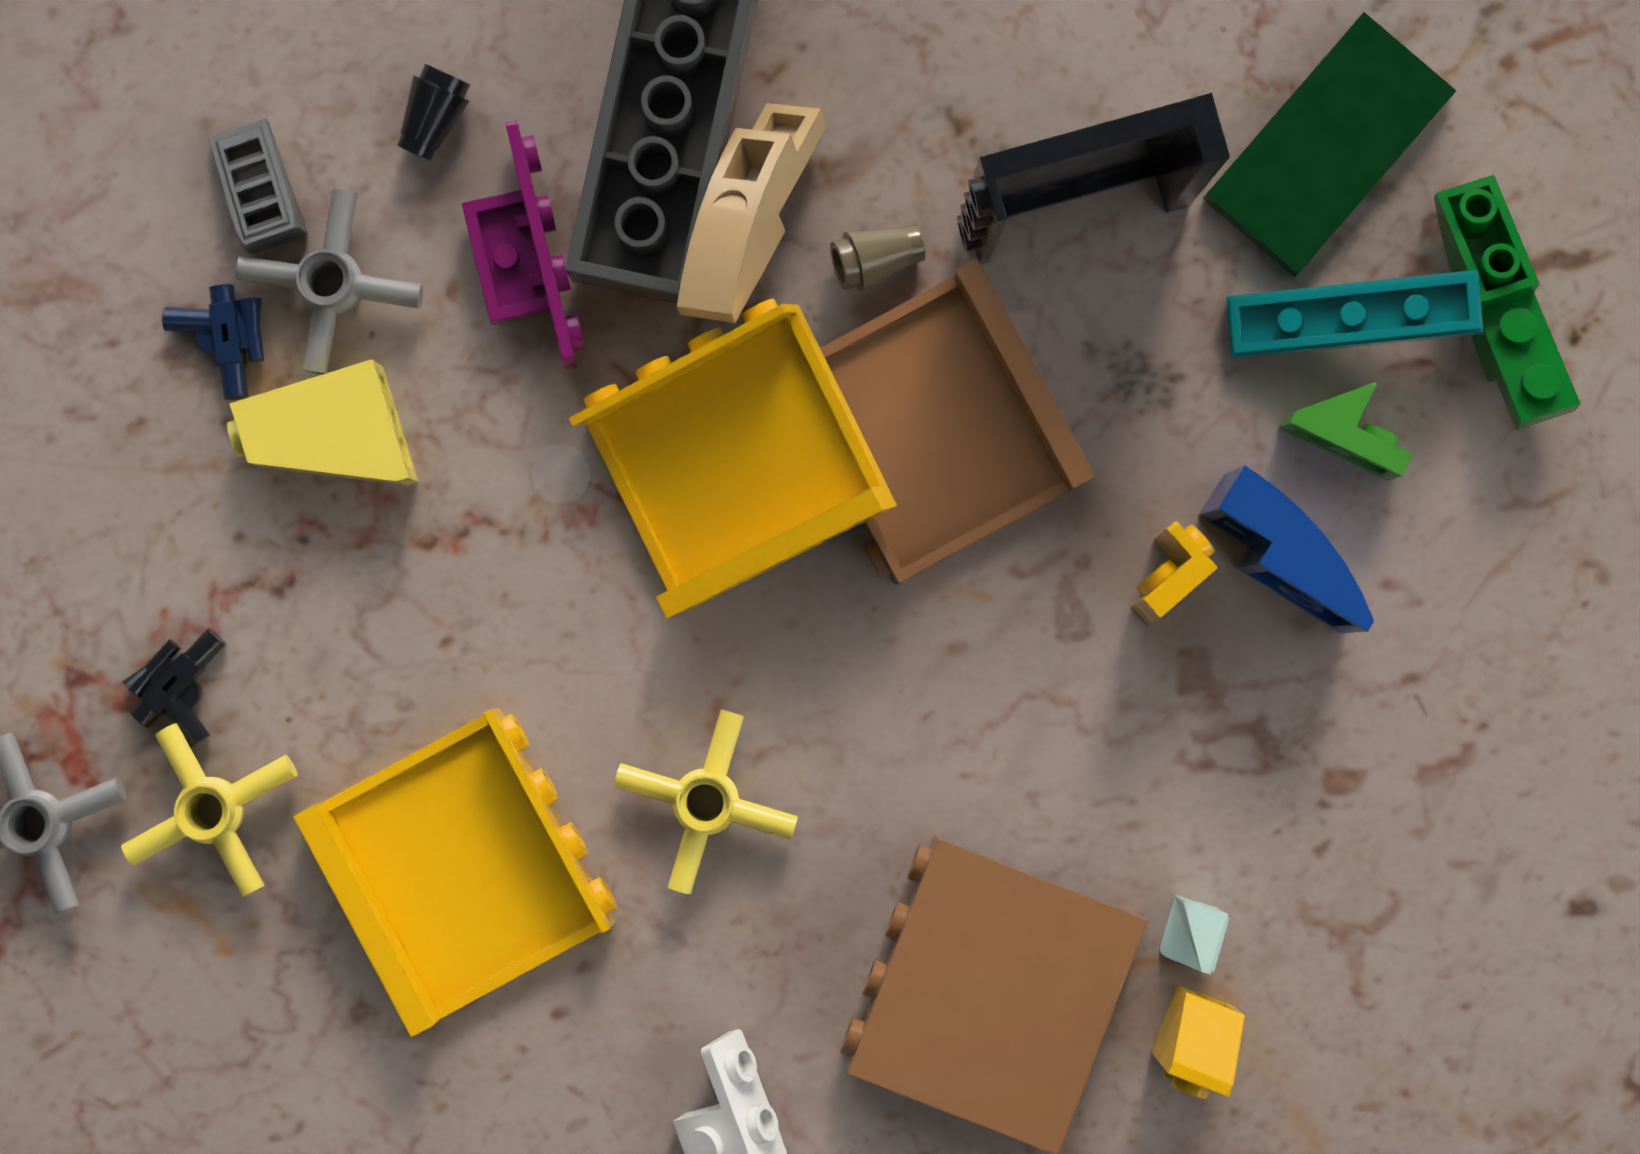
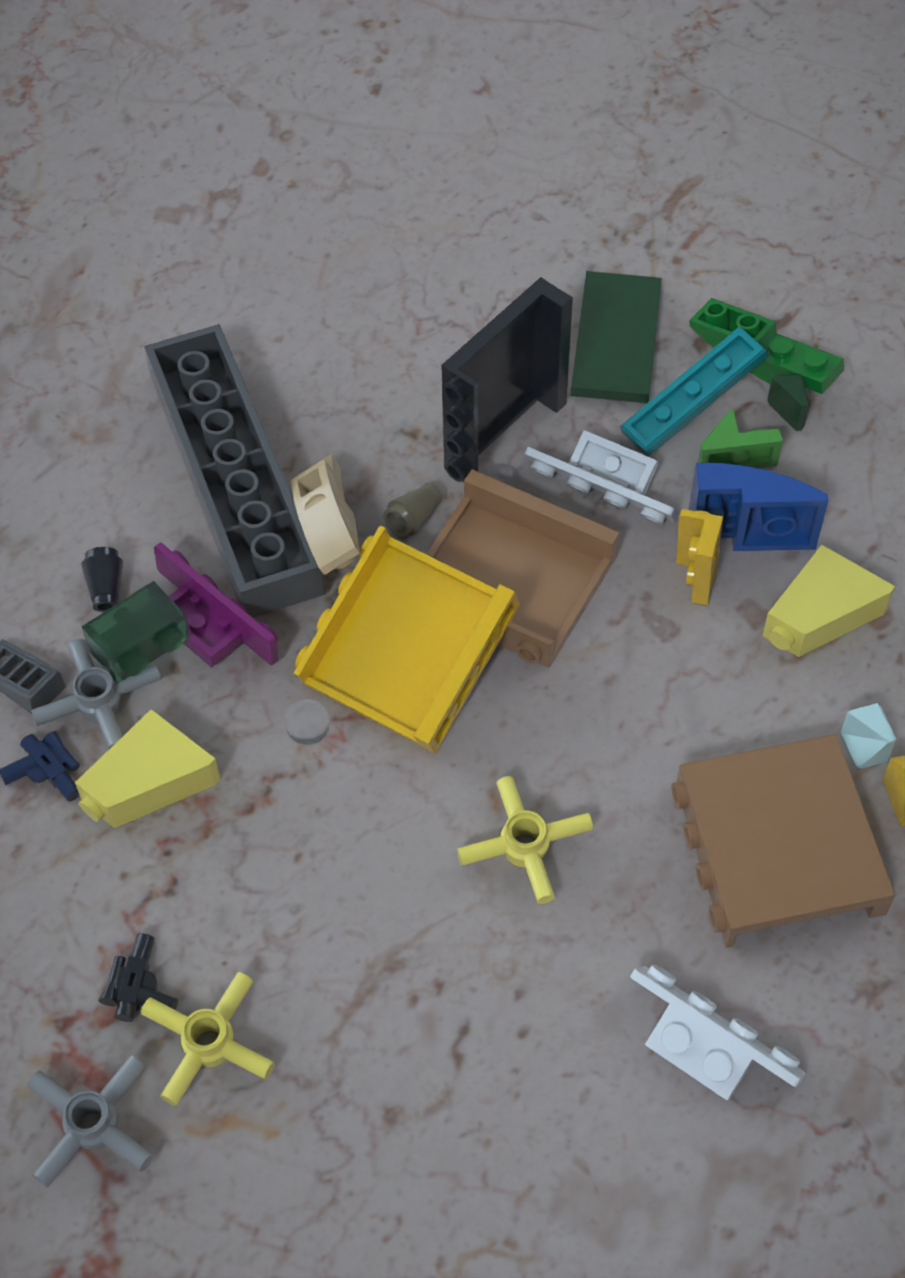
camera: 30 degrees left, 30 degrees down
(410, 242) = (135, 632): none -> clear green brick
(457, 869) = (398, 976): yellow panel -> none
(1156, 363) = (608, 469): none -> white bracket
(1280, 726) = (825, 603): none -> light yellow slope
(1472, 406) = (789, 399): none -> dark green slope

